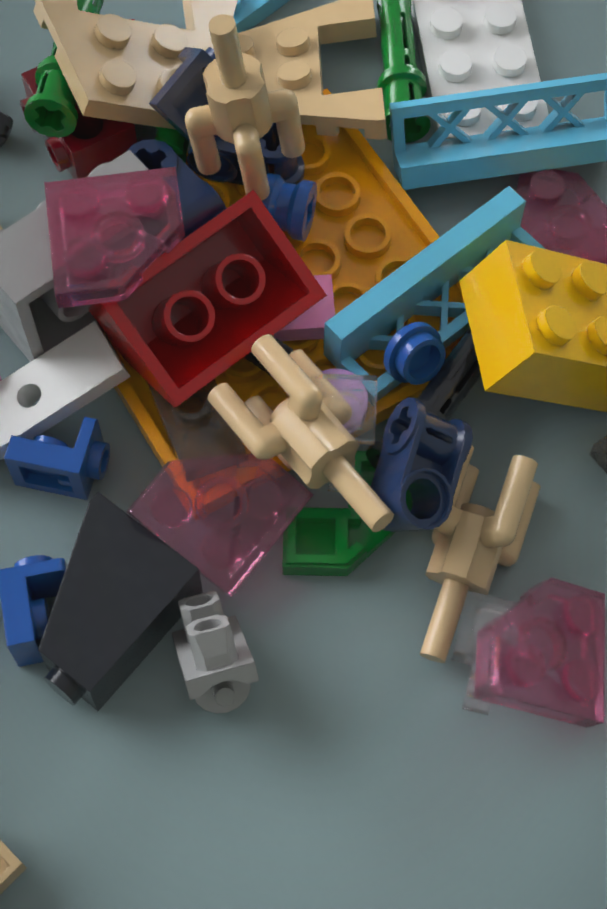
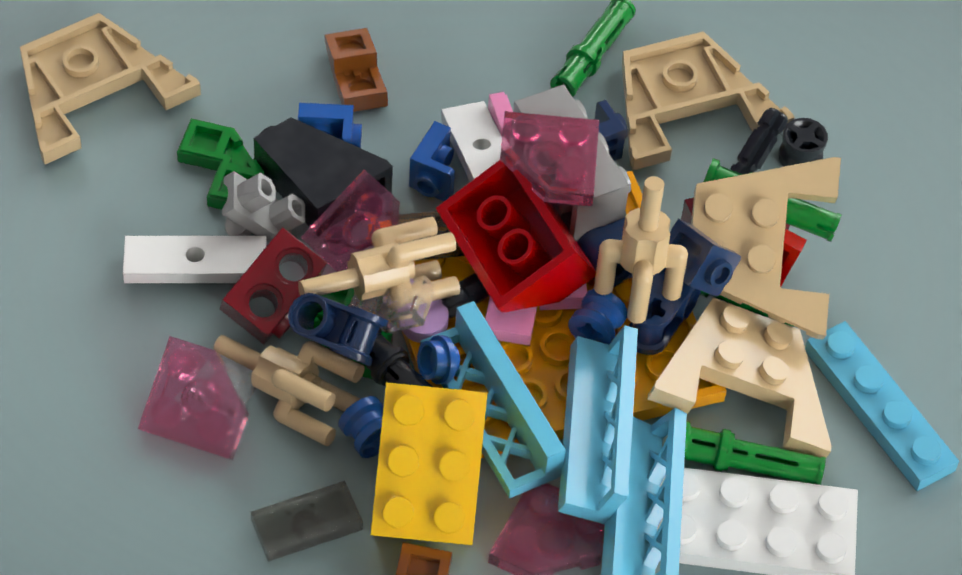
camera: 100 degrees right, 10 degrees down
(85, 761) = (216, 149): none -> green tile
(318, 770) = (189, 258): none -> white tile
(344, 595) = (266, 281): none -> dark red brick
(436, 185) = (598, 426): none -> medium azure fence
(505, 433) = (364, 424): none -> blue wheel

